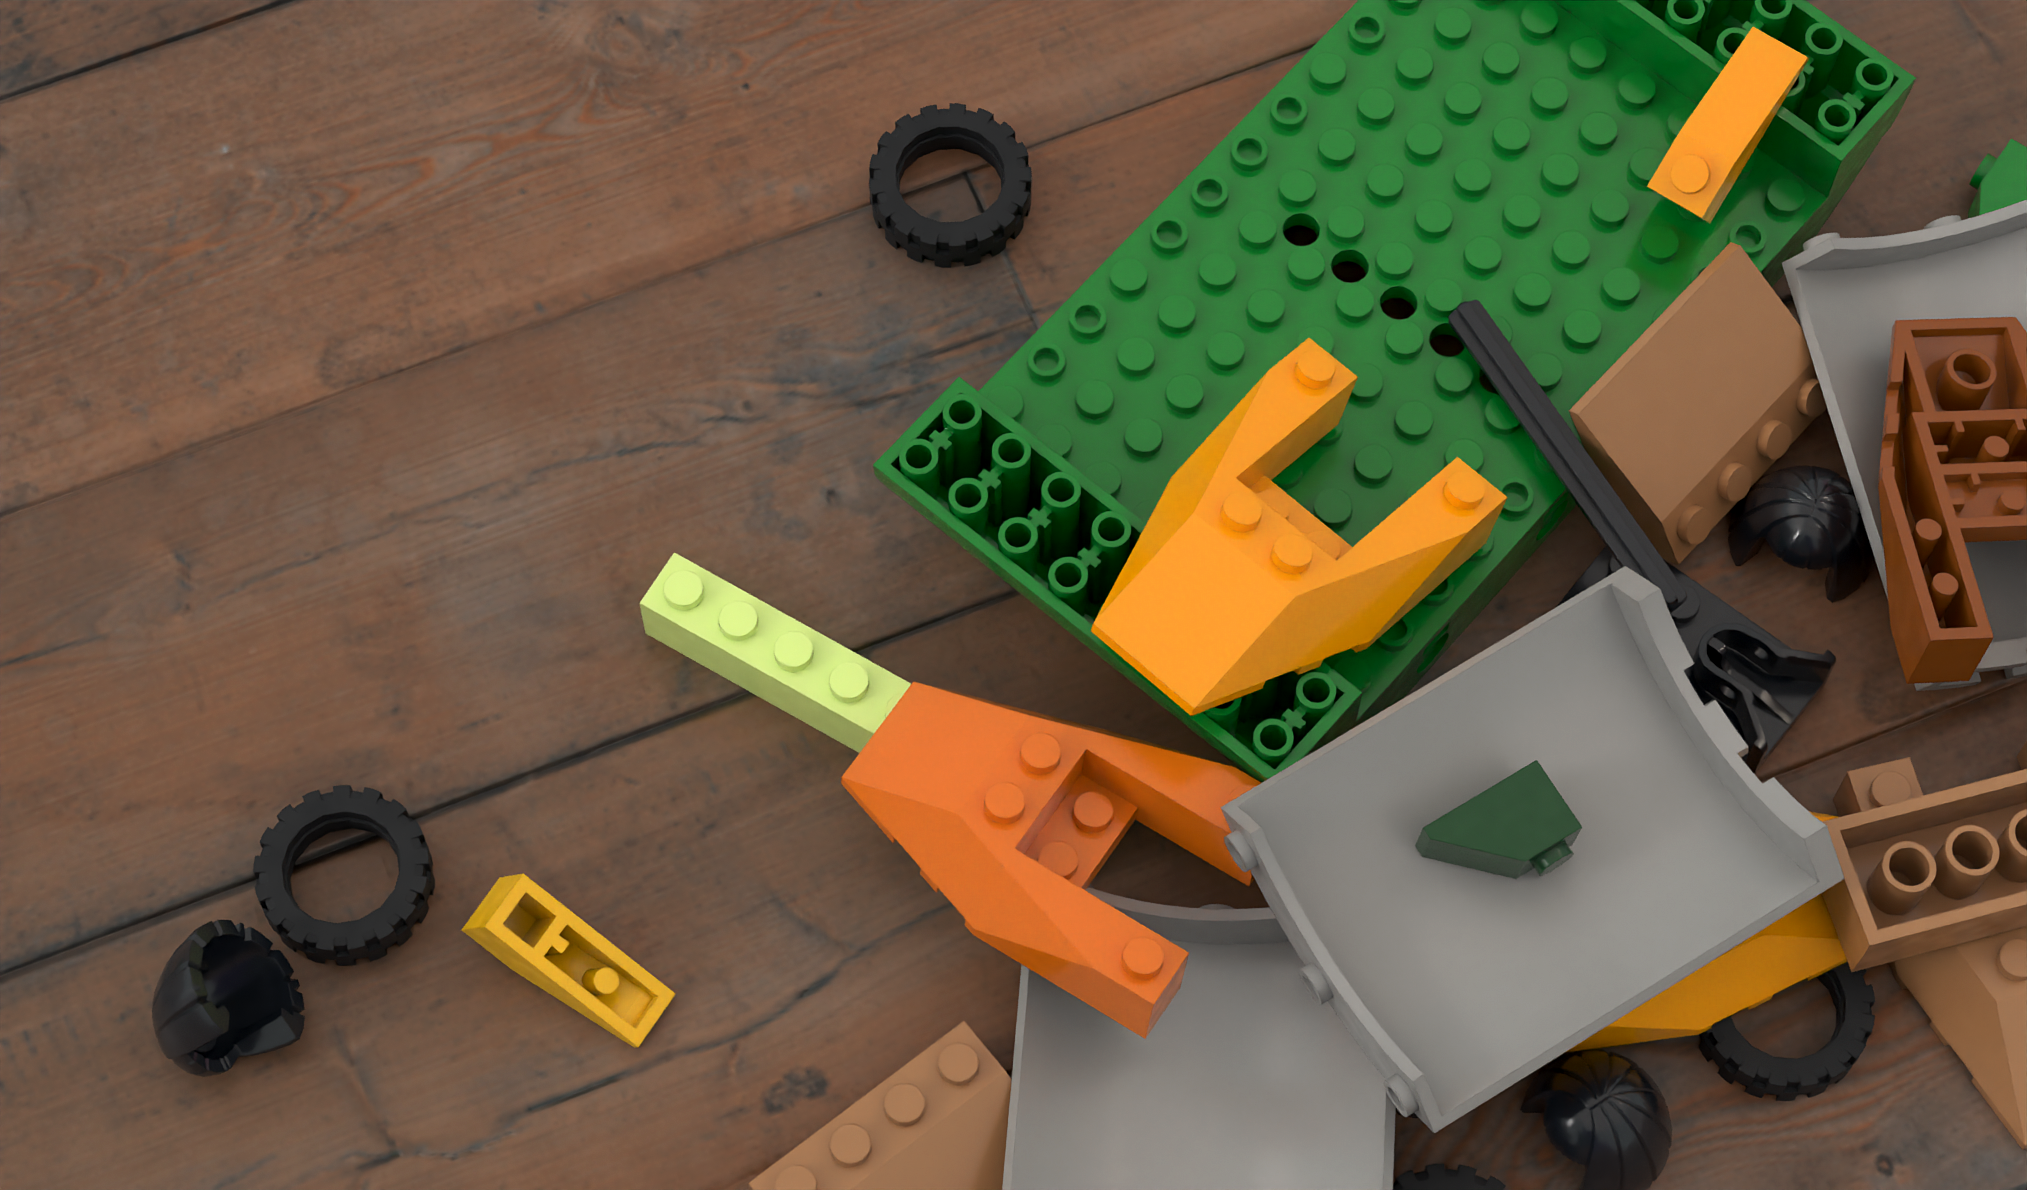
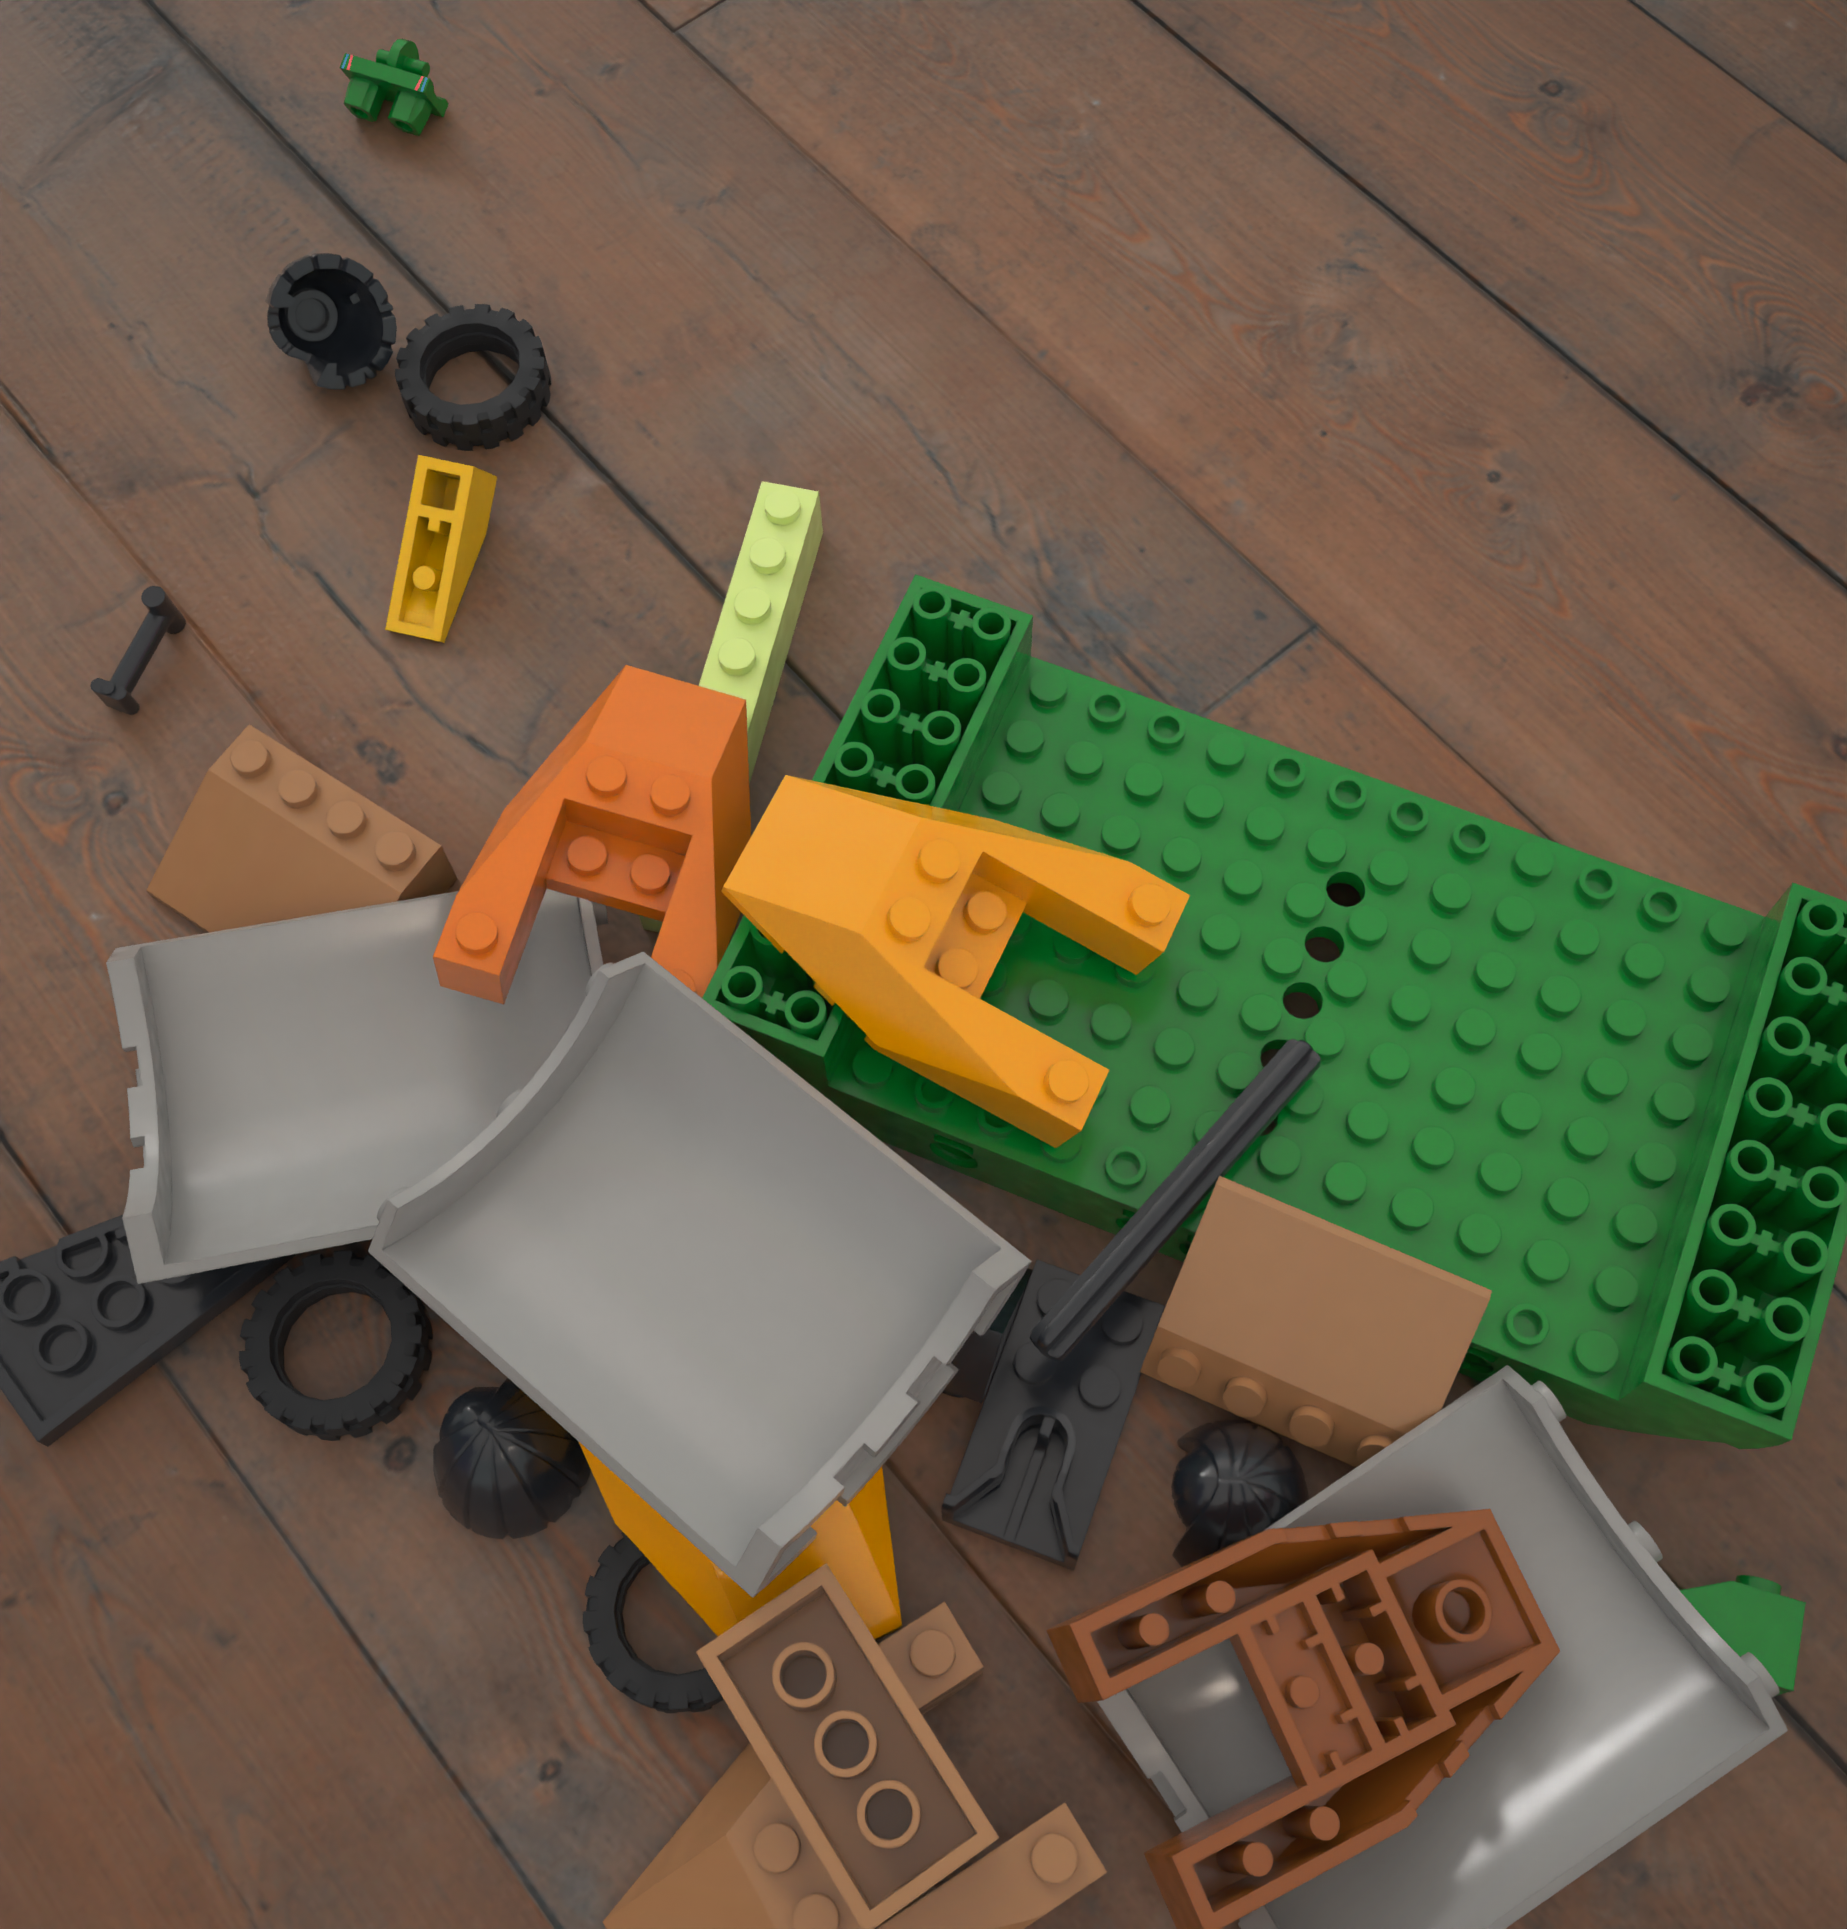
camera: 75 degrees right, 0 degrees up
(949, 130) = (1289, 558): black tyre -> none
(1506, 828) = (715, 1234): dark green slope -> none
(1727, 125) = (1623, 1241): light orange slope -> none

